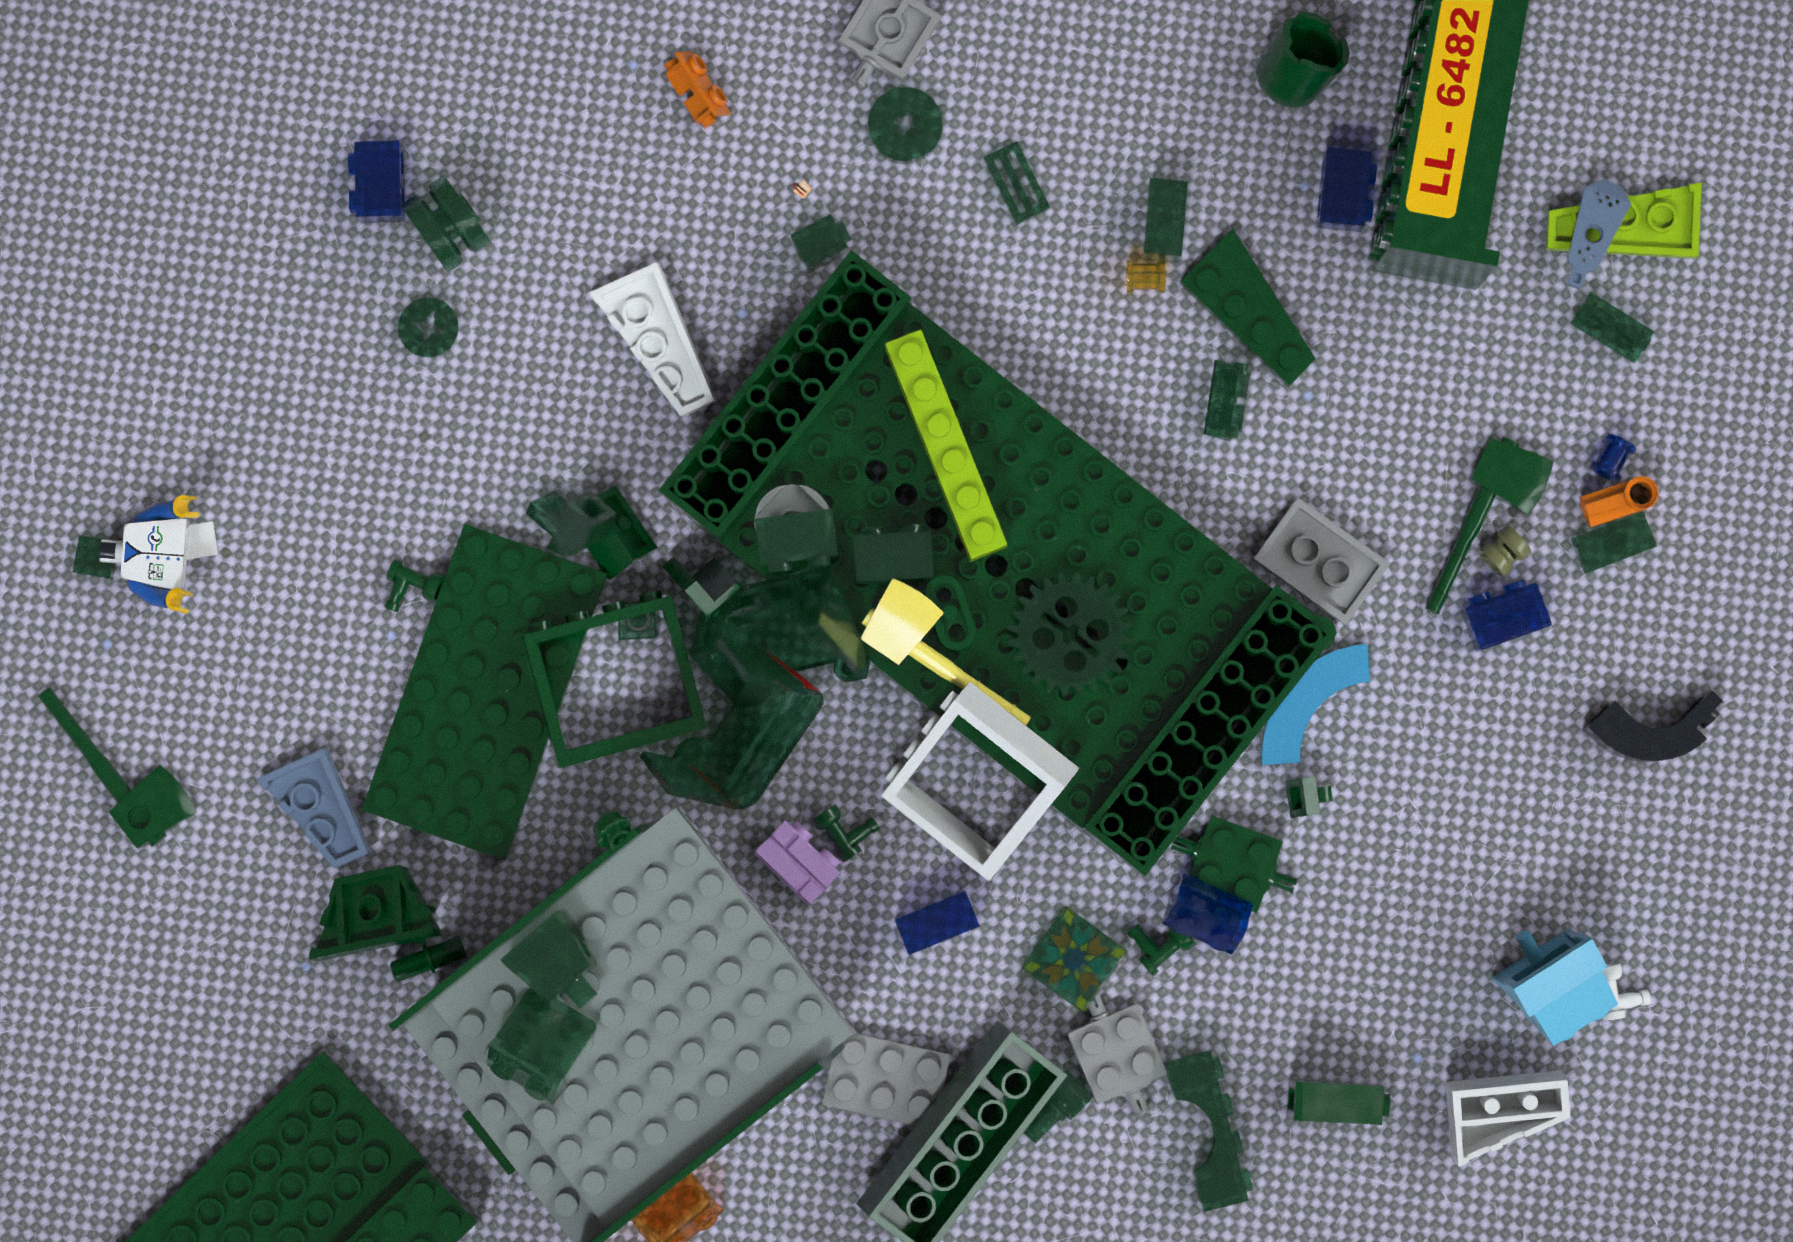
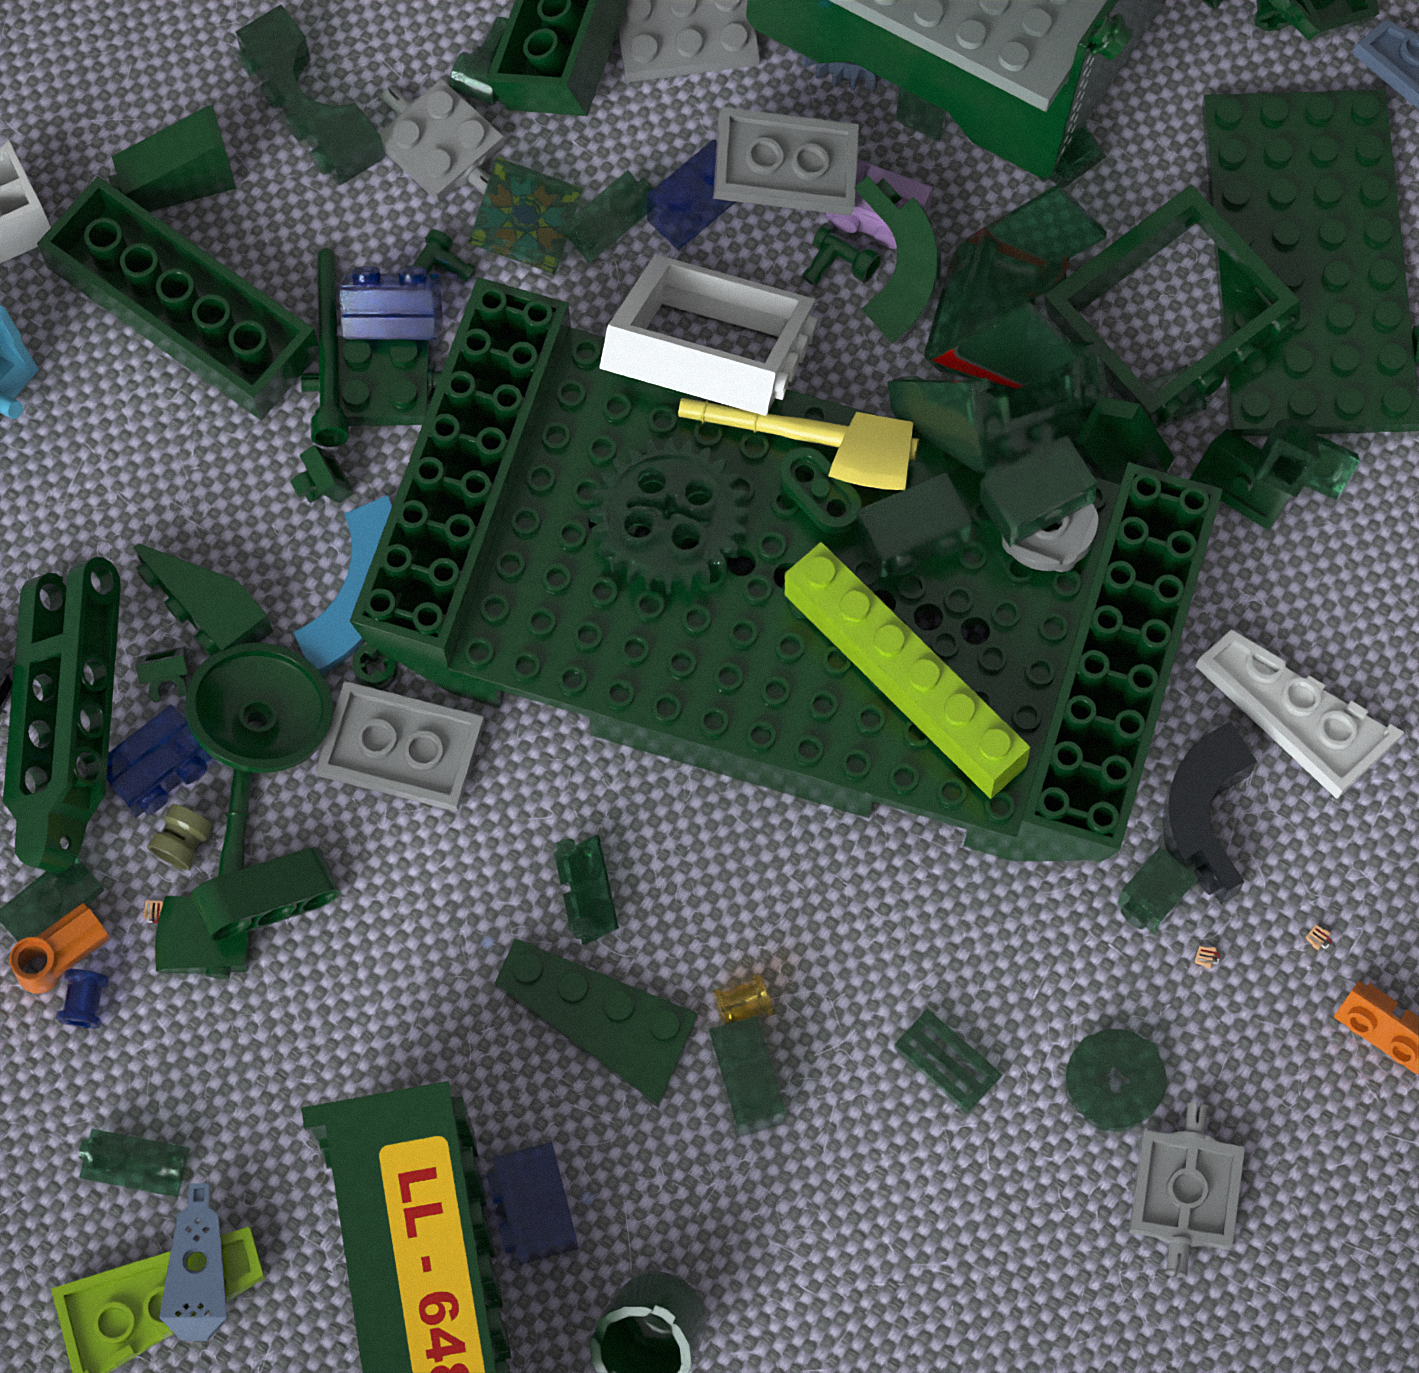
camera: 160 degrees right, 15 degrees down
(716, 172) = (1318, 936): none -> light nougat piece
(756, 311) = (1204, 773): none -> black arch
(788, 812) = (918, 266): none -> dark green arch
(863, 906) = (786, 161): none -> light grey plate
(1010, 935) = (608, 216): none -> clear green hinge
(1287, 833) = (329, 423): none -> dark green piece
(1368, 985) = (179, 298): none -> dark green brick
(1391, 629) = (261, 686): none -> dark green dish
(1421, 721) = (209, 601): none -> dark green slope
(1458, 480) = (265, 893): none -> dark green beam
(1475, 688) = (162, 667): none -> dark green tile
(1529, 721) = (53, 651): none -> dark green piece
(1540, 510) = (152, 910): none -> light nougat piece

